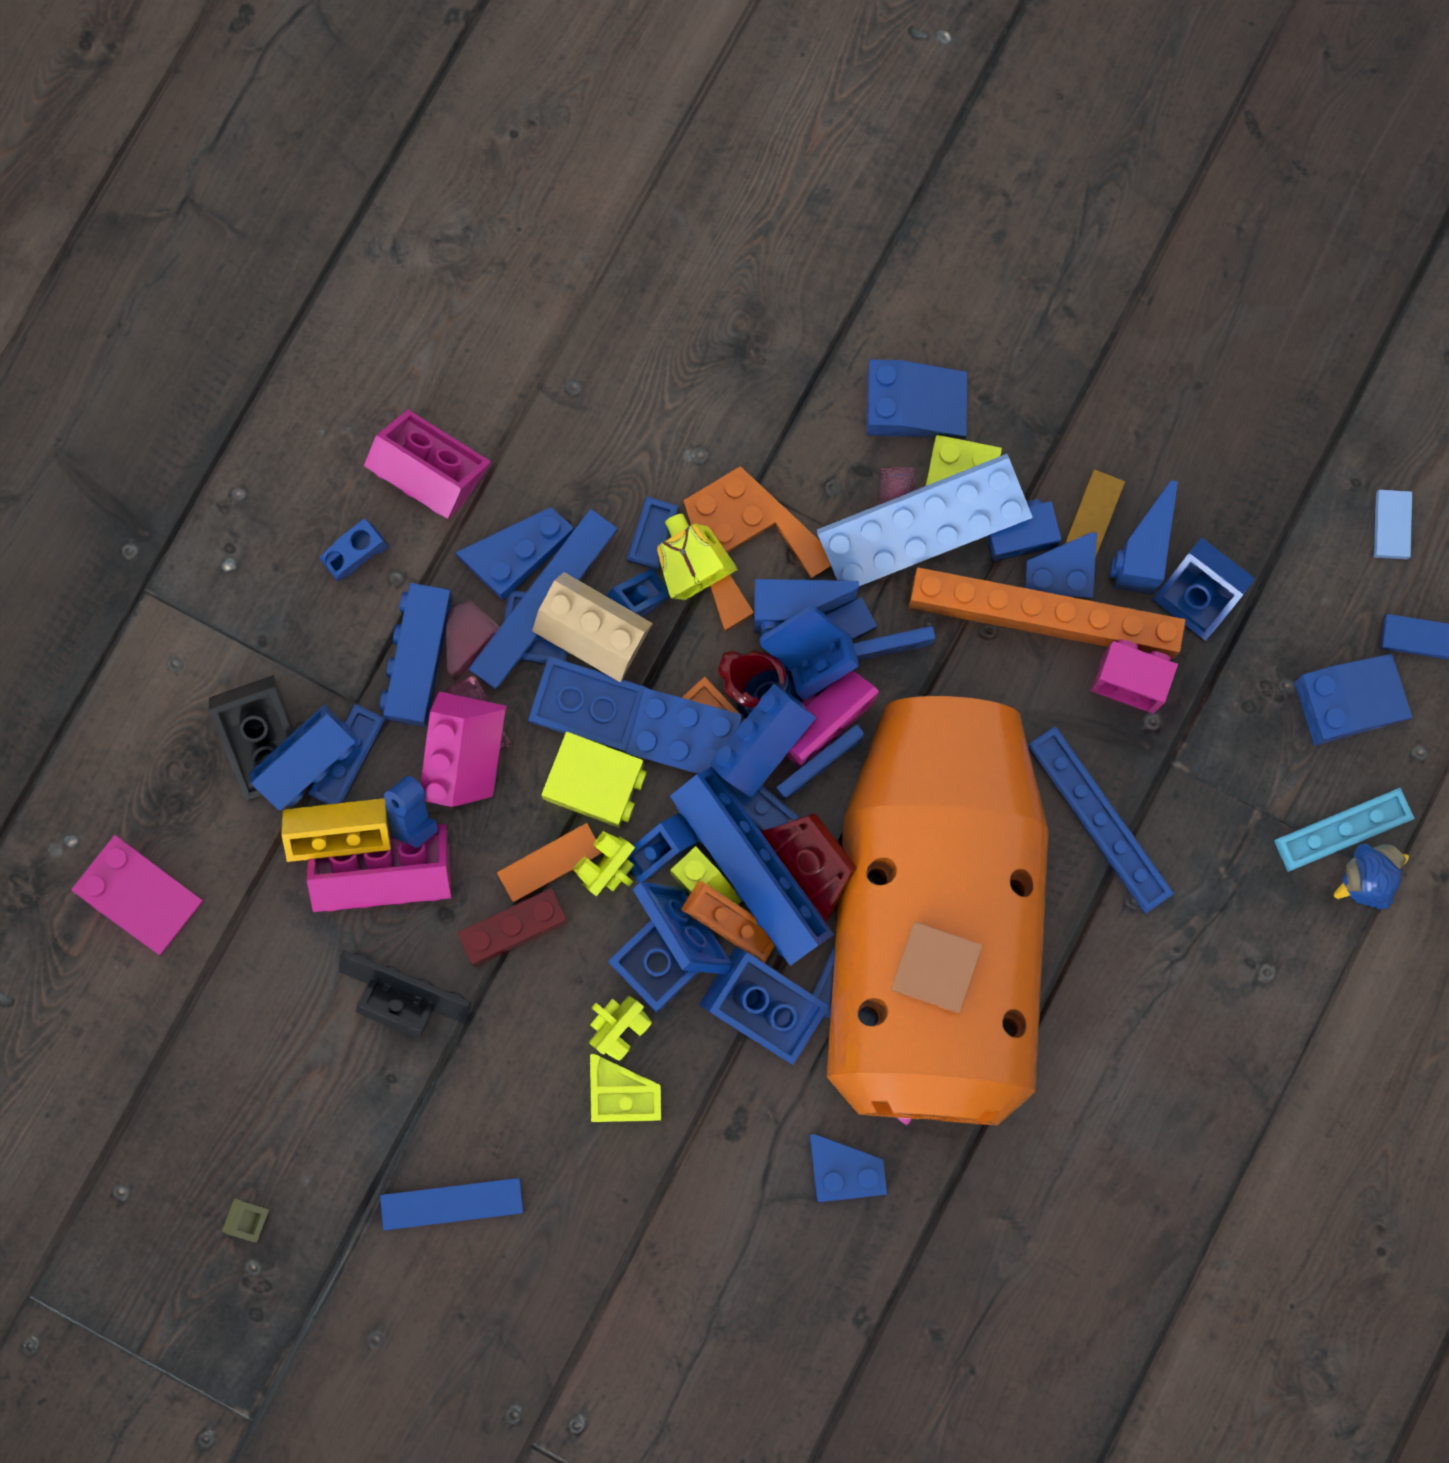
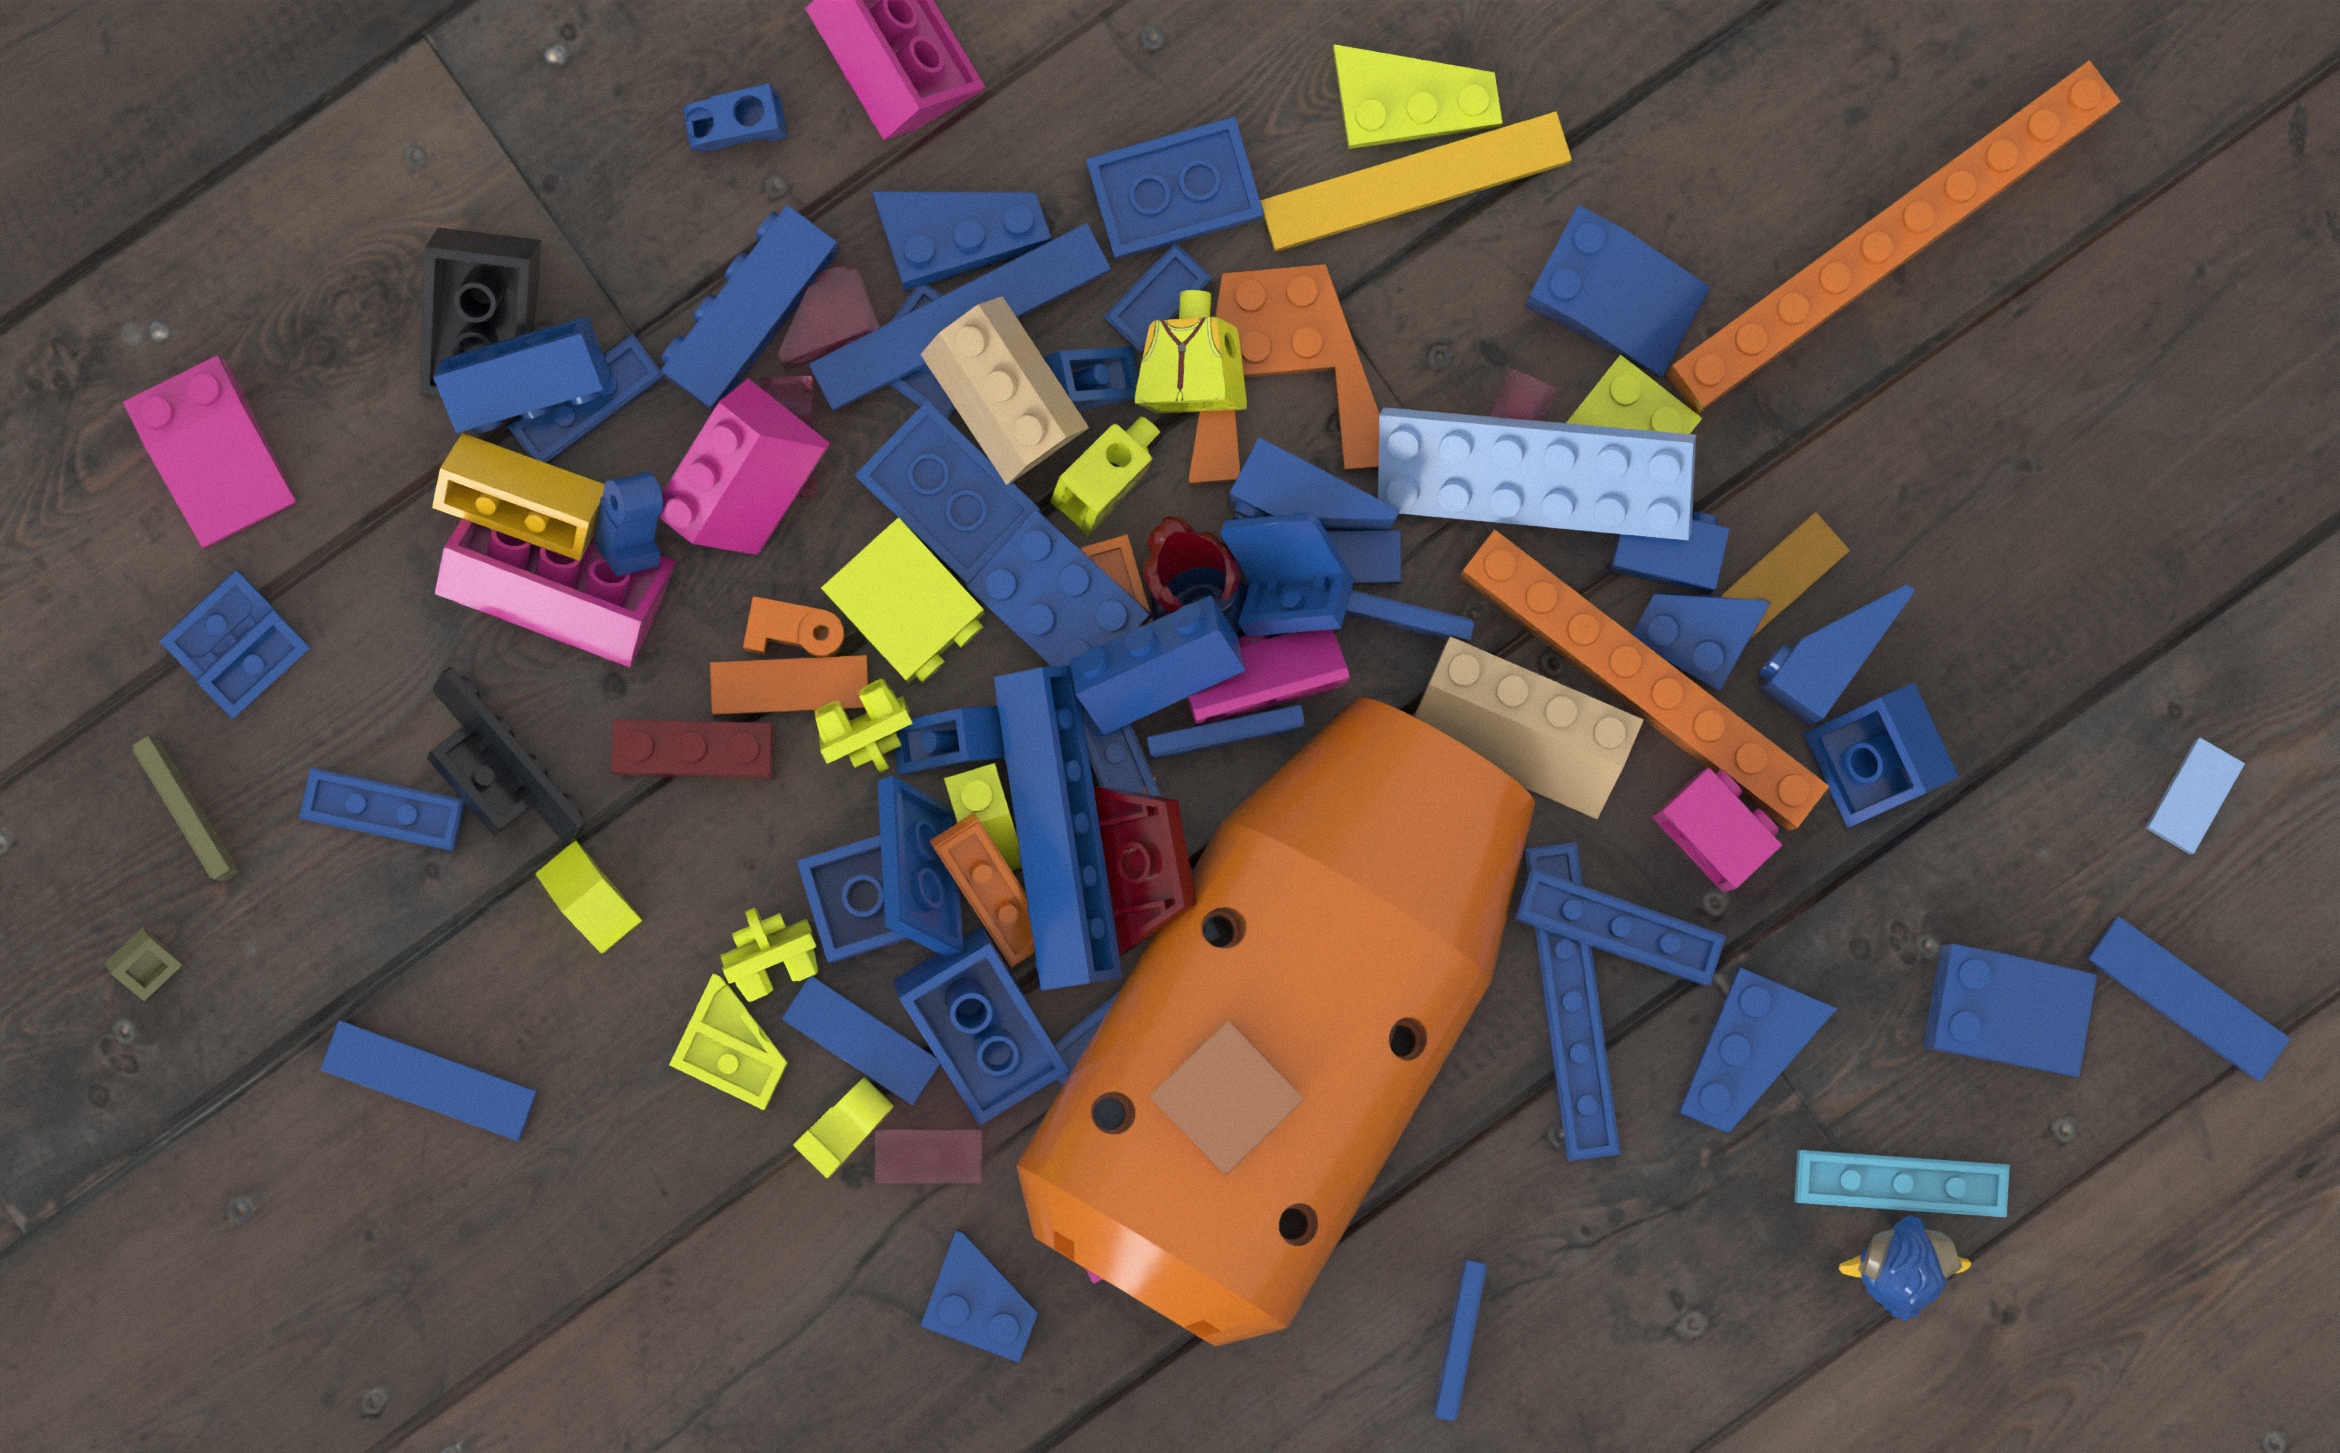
camera: 25 degrees right, 5 degrees up
(206, 1002) = (234, 643): none -> blue slope
(225, 1114) = (185, 809): none -> olive tile
(343, 1056) = (382, 809): none -> blue tile
(493, 1047) = (588, 897): none -> neon yellow slope
(534, 826) = (794, 625): none -> orange leg
(630, 465) = (1174, 188): none -> blue plate
(674, 648) = (1093, 485): none -> neon yellow torso
(697, 1050) = (861, 1040): none -> blue tile
(713, 1106) = (844, 1127): none -> neon yellow leg
(741, 348) = (1411, 98): none -> neon yellow wing
(767, 394) = (1415, 181): none -> yellow tile
(773, 1097) = (929, 1156): none -> clear pink brick
(1003, 670) = (1530, 726): none -> tan slope
(1056, 294) = (1892, 238): none -> orange brick
(1105, 762) = (1618, 927): none -> blue tile
(1138, 1049) = (1459, 1339): none -> blue tile
(1215, 795) = (1749, 1047): none -> blue wing

